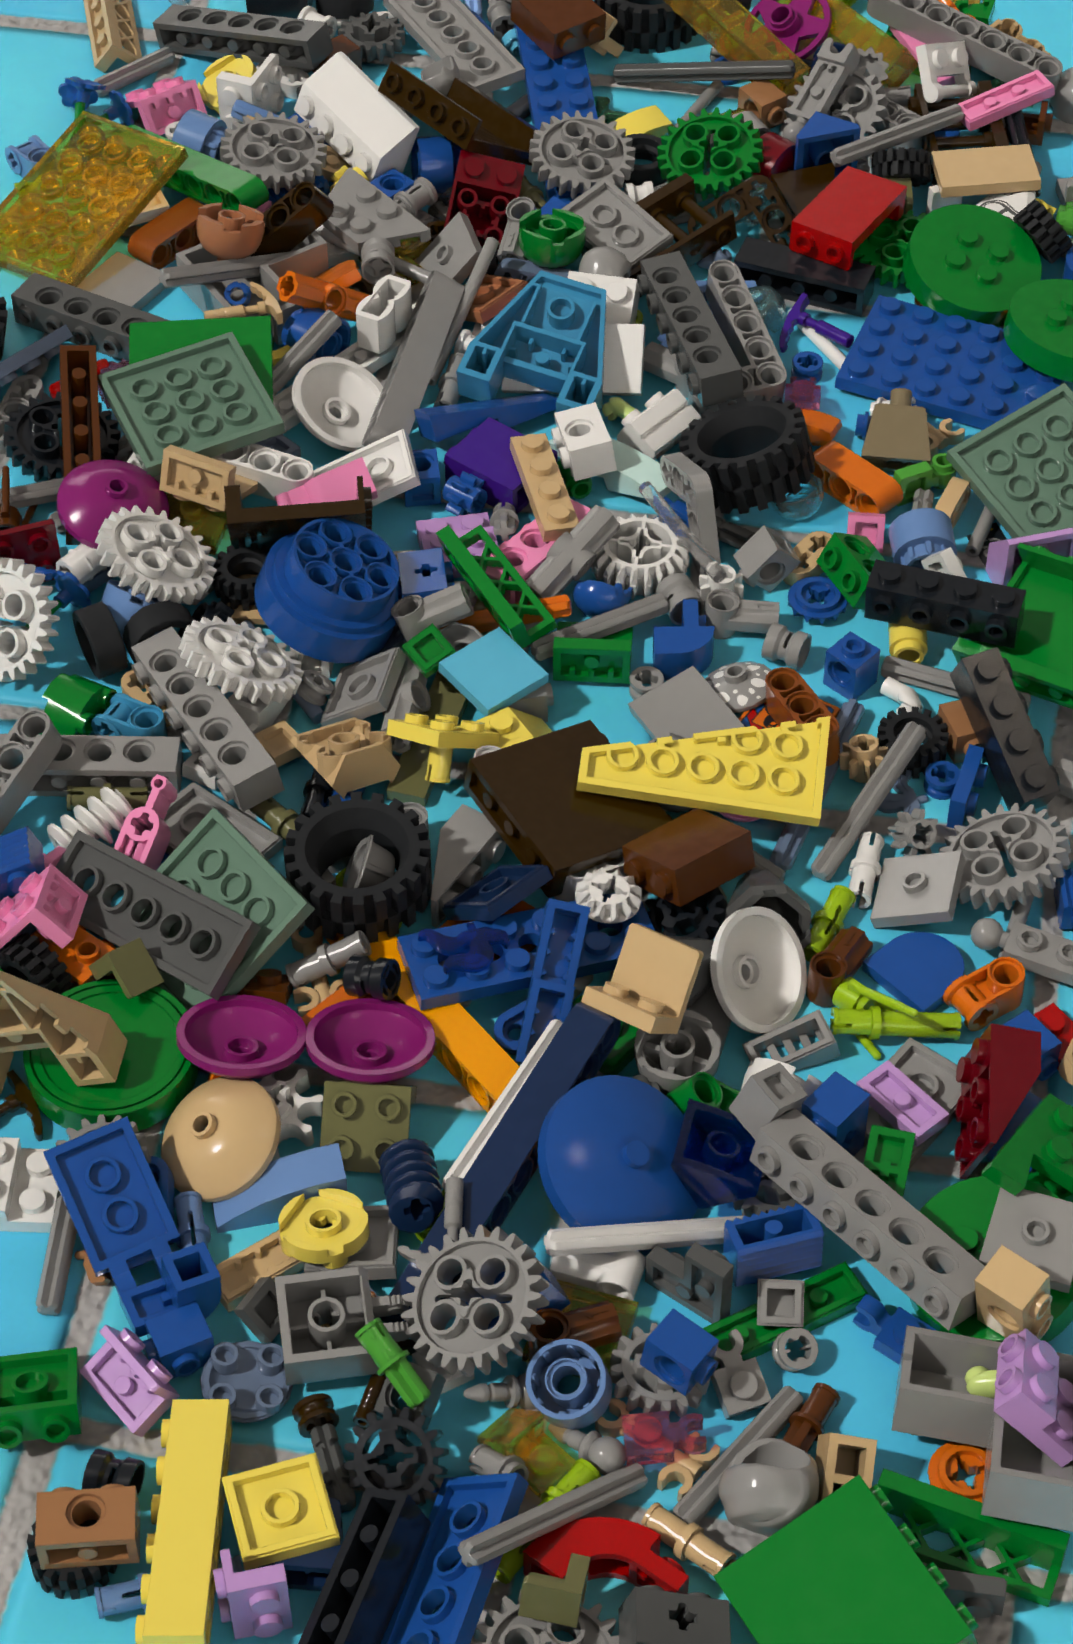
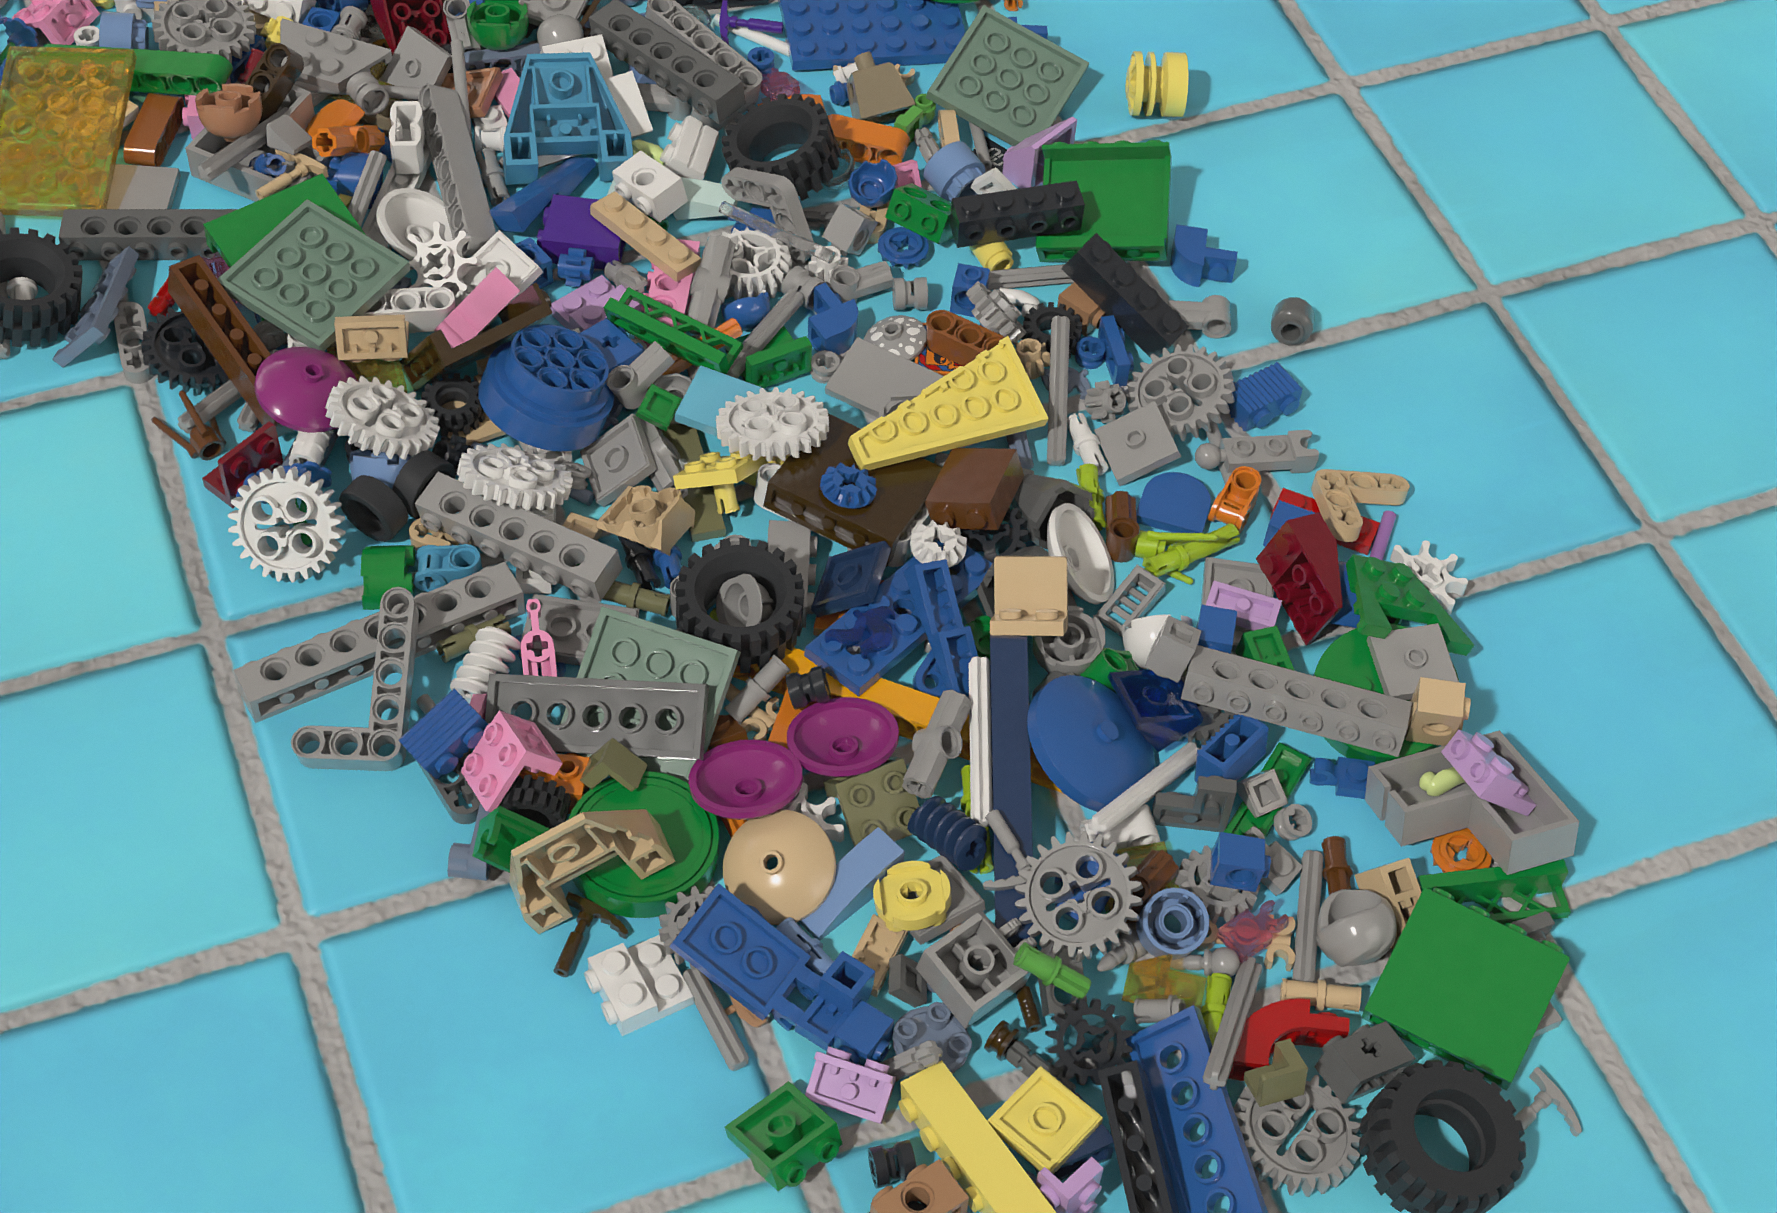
camera: 35 degrees left, 5 degrees up
(200, 1384) = (914, 1060): none -> light grey axle
(265, 269) = (287, 135): none -> light grey slope
(328, 435) = (451, 257): none -> white gear
(434, 1099) = (937, 744): none -> light grey piece
(518, 707) = (772, 424): none -> white gear
(540, 805) = (850, 495): none -> blue gear
(818, 520) = (873, 183): none -> blue hair
(849, 693) = (996, 312): none -> light grey gear

